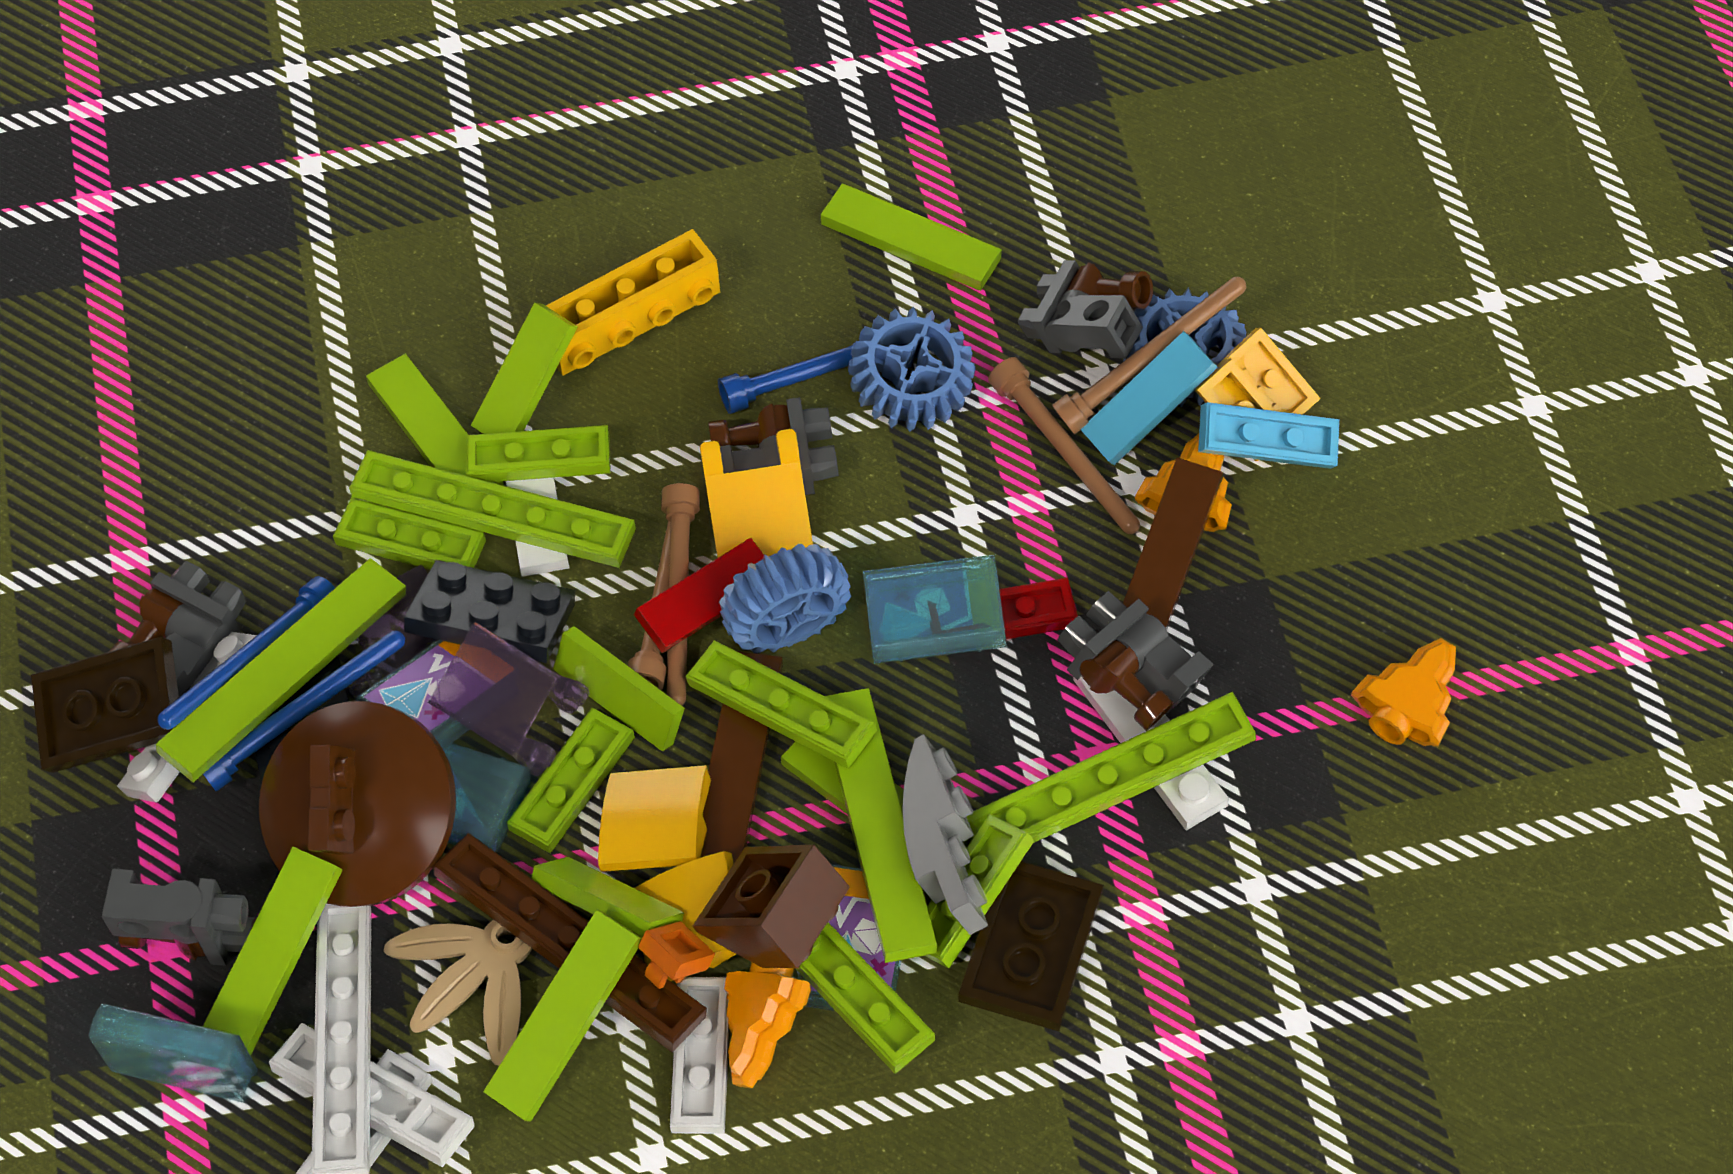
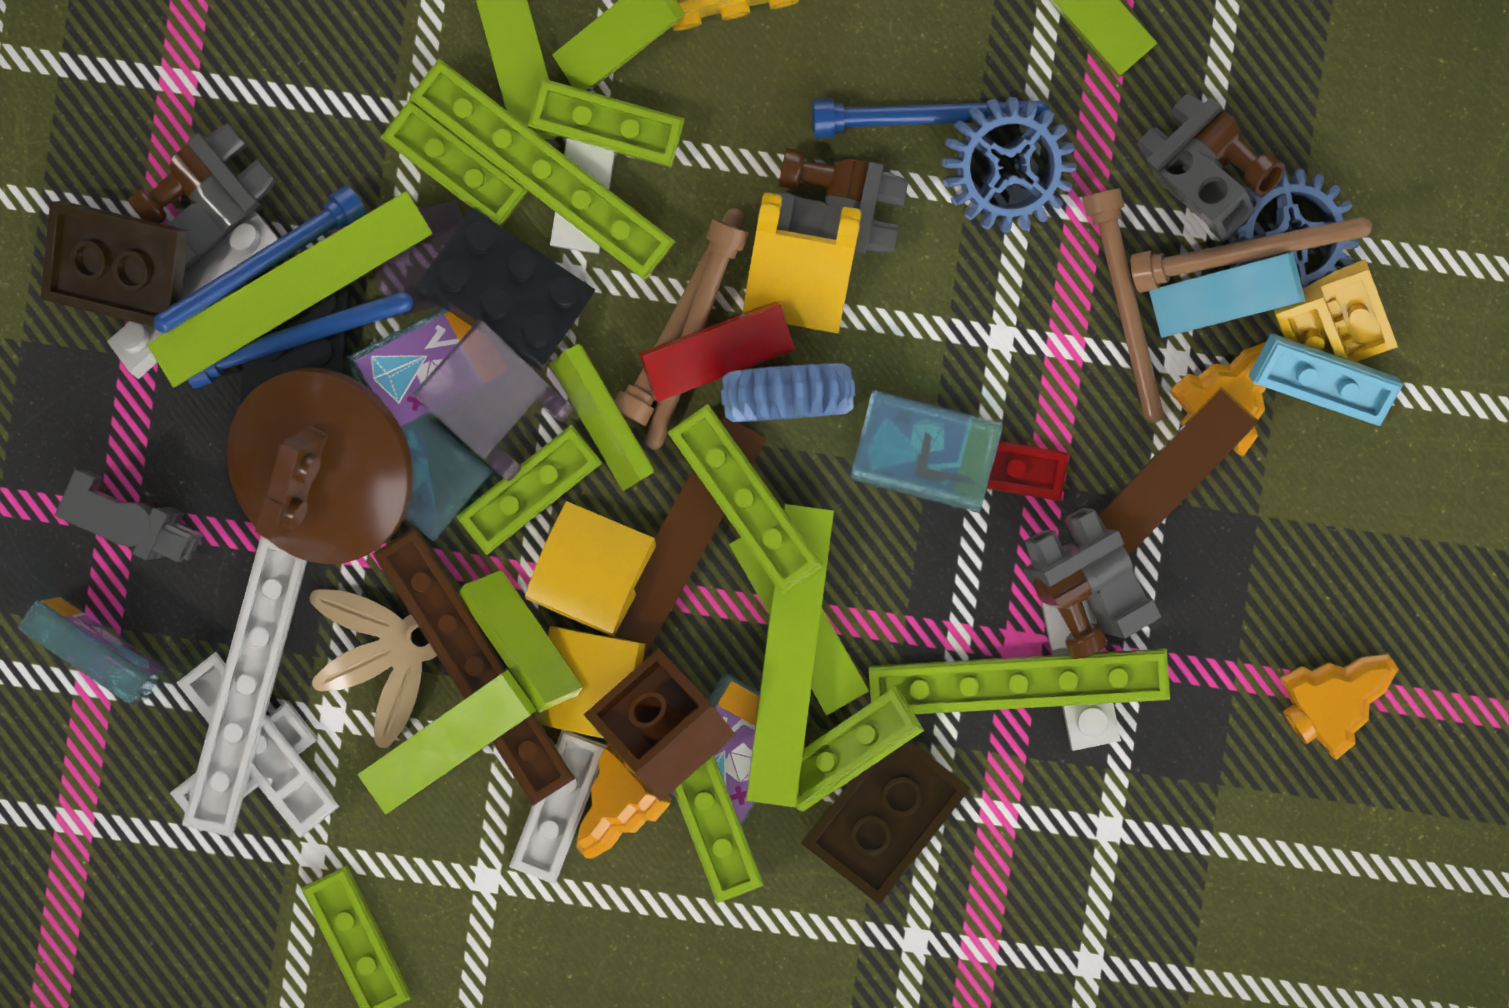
camera: 15 degrees right, 30 degrees up
(273, 947) = (200, 582): lime tile -> none
(674, 953) = (561, 731): orange tile -> none
(935, 834) = (840, 677): light grey slope -> none

